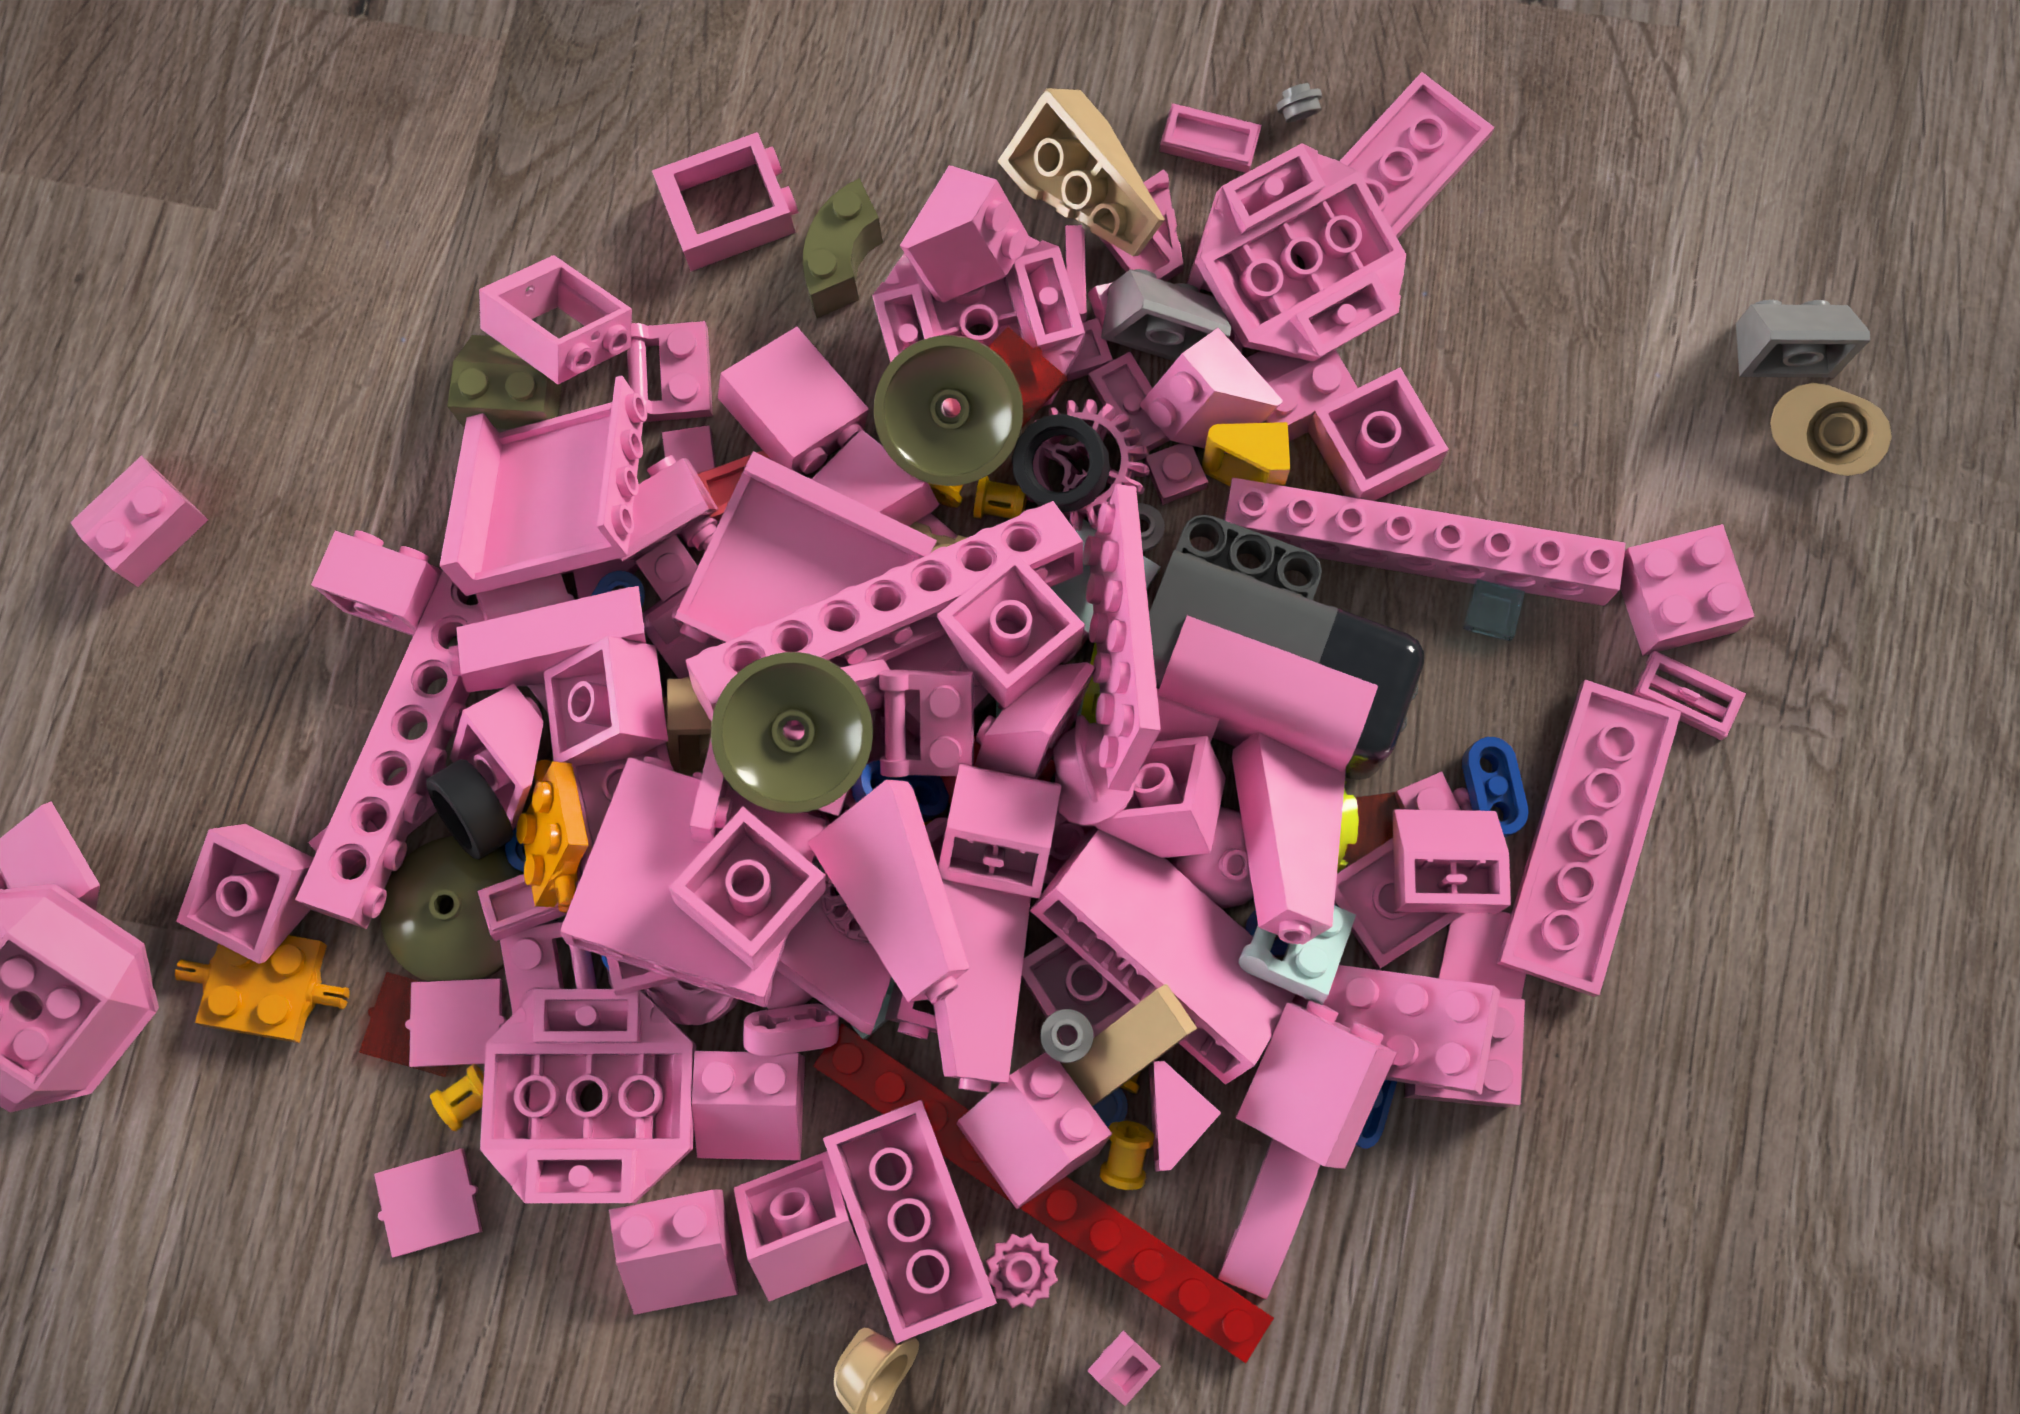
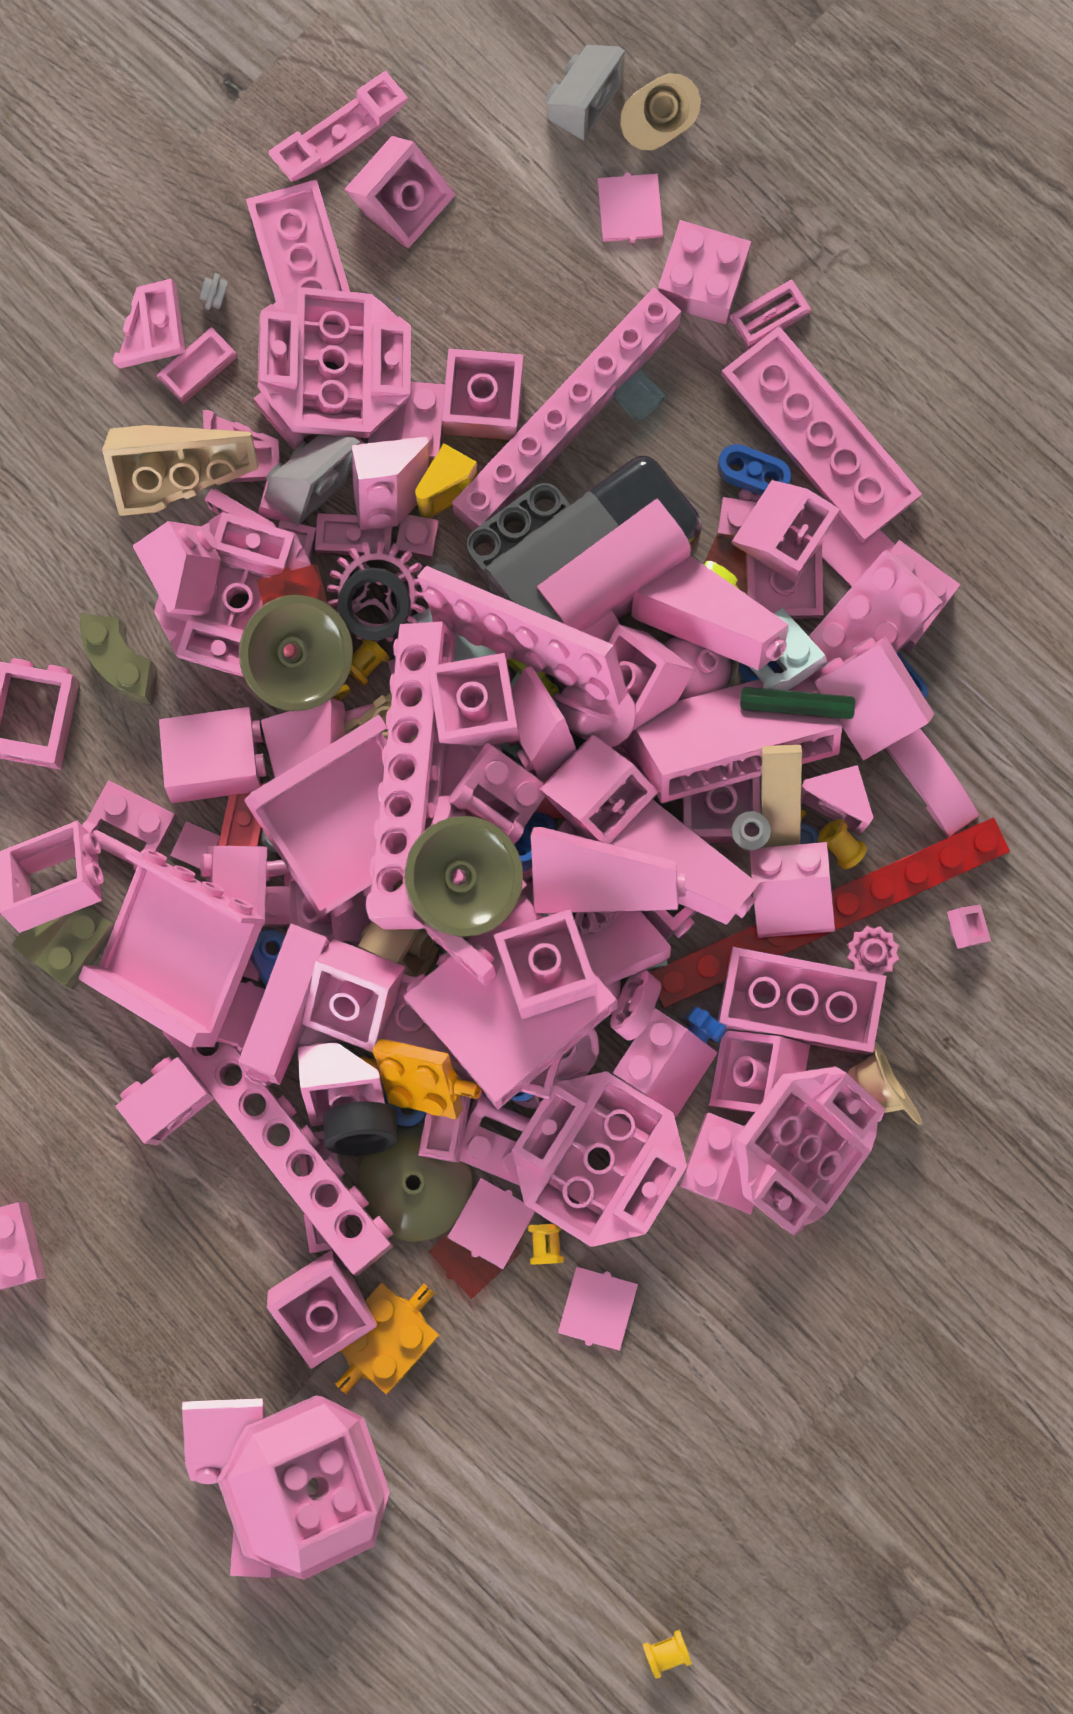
camera: 60 degrees left, 5 degrees up
(733, 1329) = (806, 1145): none -> bright pink piece
(816, 1123) = (704, 1025): none -> blue plate
(1222, 66) = (153, 326): none -> bright pink wing
(1249, 997) = (797, 703): none -> dark green axle
(1543, 220) = (400, 190): none -> bright pink slope
(1563, 122) = (342, 130): none -> bright pink slope
(1700, 470) = (630, 207): none -> bright pink piece

